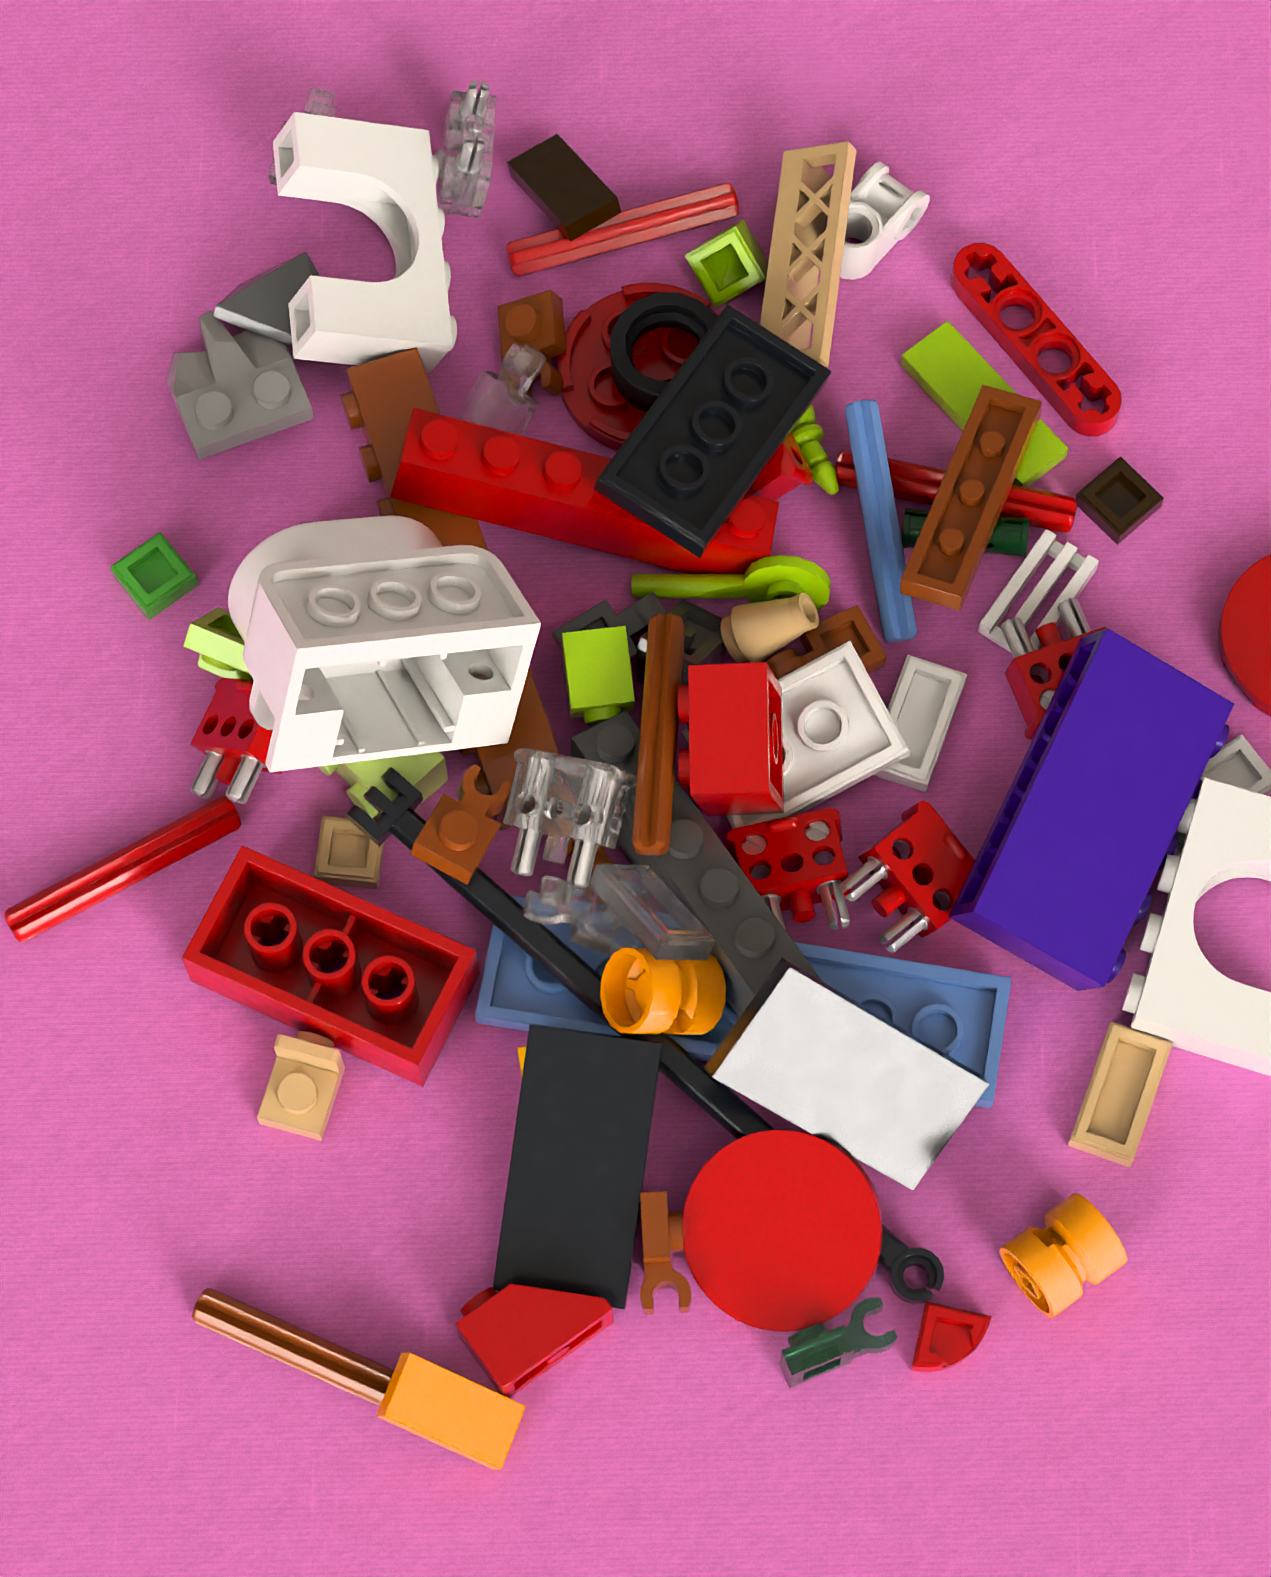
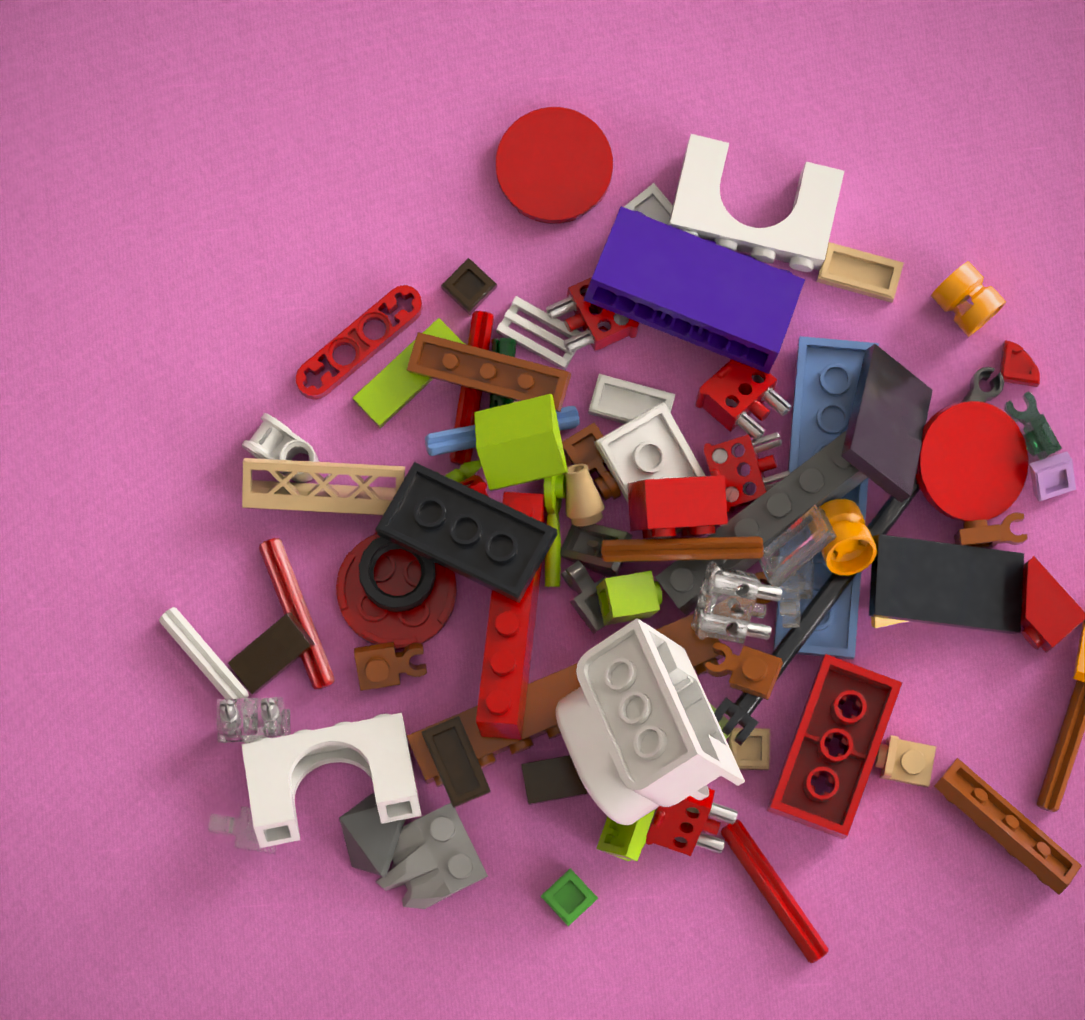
camera: 95 degrees left, 10 degrees up
(175, 1233) = (1008, 826): none -> dark orange plate
(364, 407) = (456, 762): none -> dark brown tile
(502, 399) = (436, 679): clear plate -> none
(570, 104) = (202, 655): none -> white axle
(728, 263) = (317, 541): lime slope -> none
(750, 1367) = (1052, 476): none -> lavender tile
(853, 522) = (519, 442): none -> lime slope

